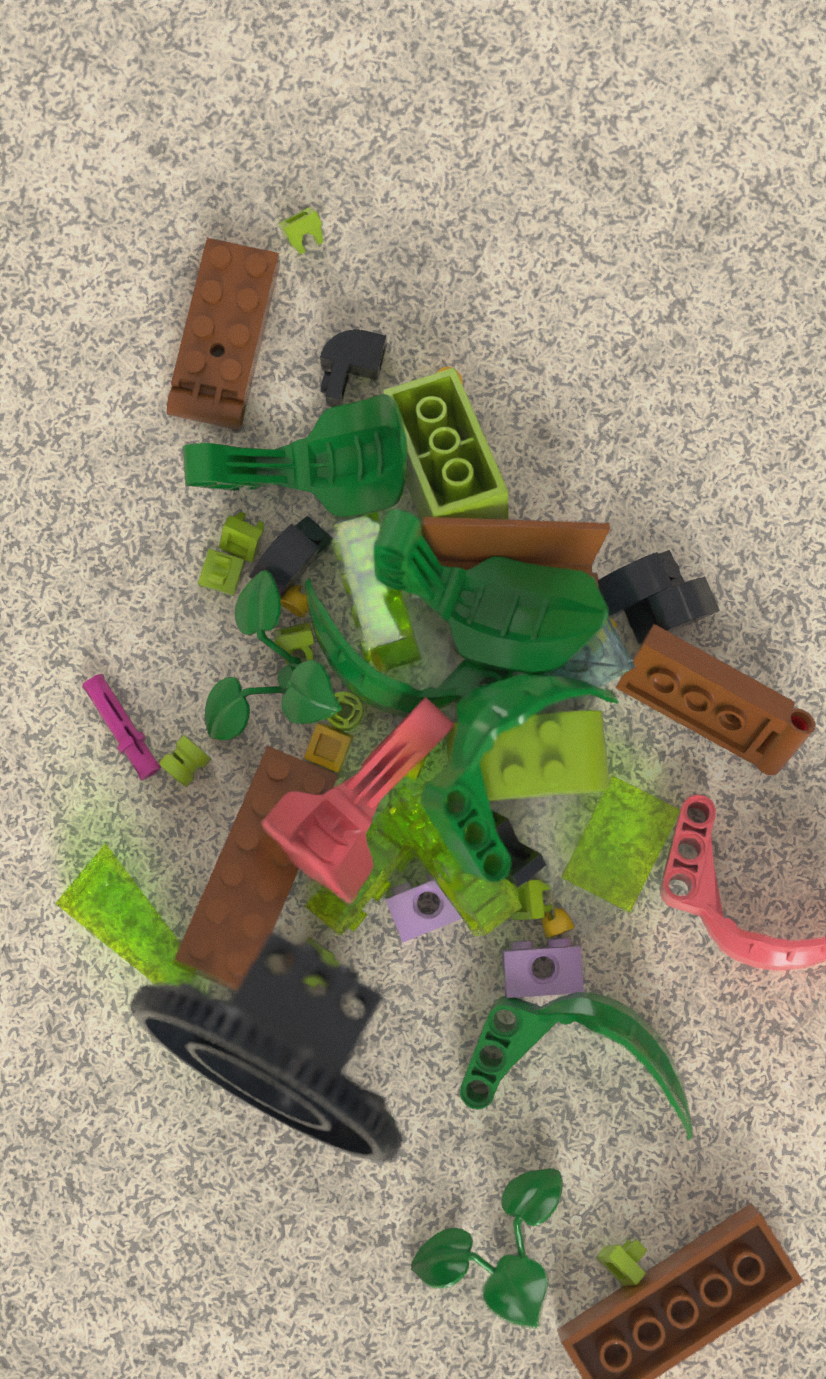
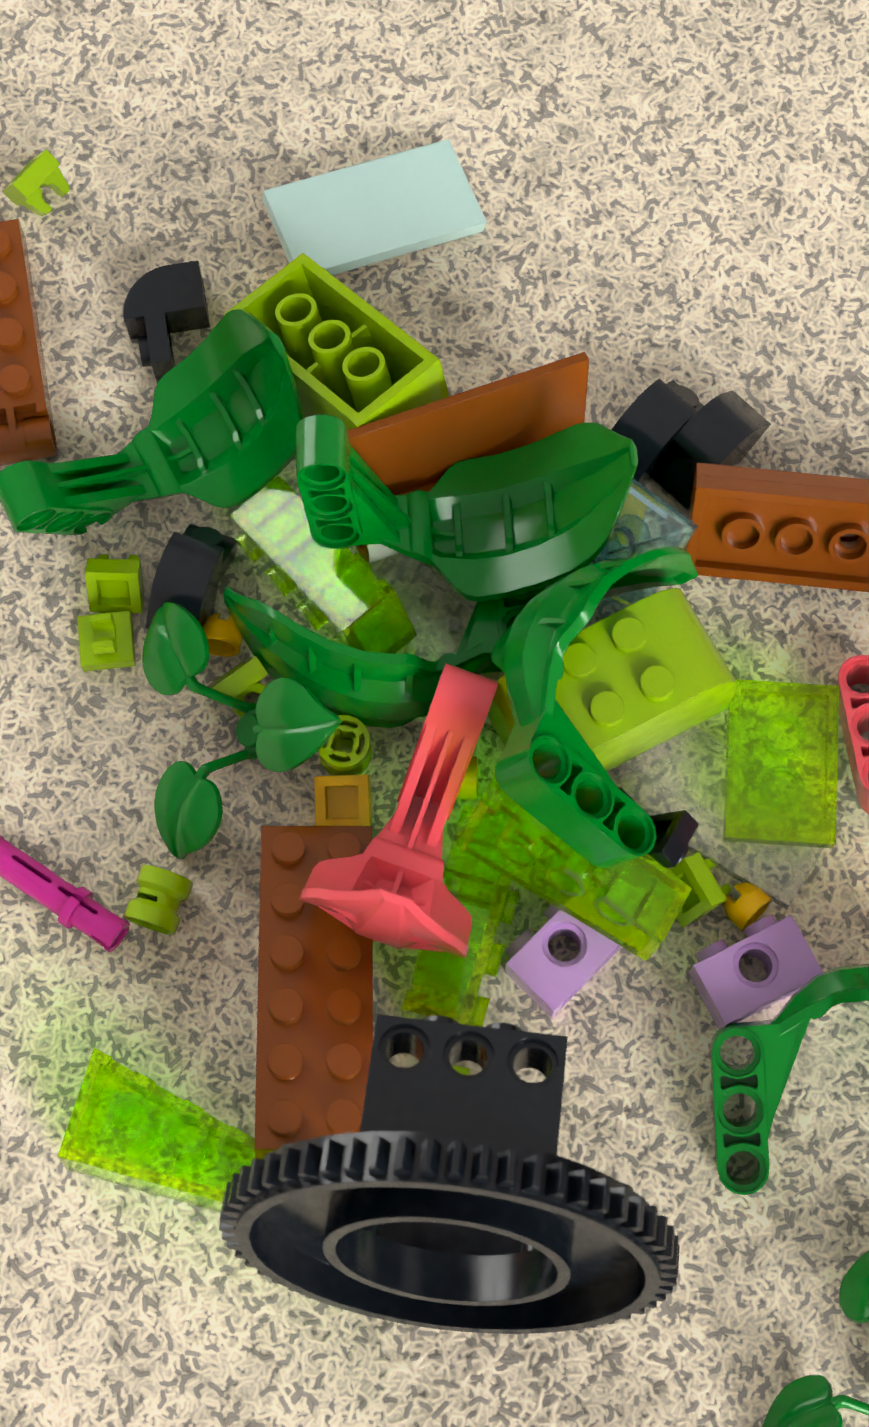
camera: 20 degrees left, 10 degrees down
(521, 345) = (376, 209): none -> light aqua tile

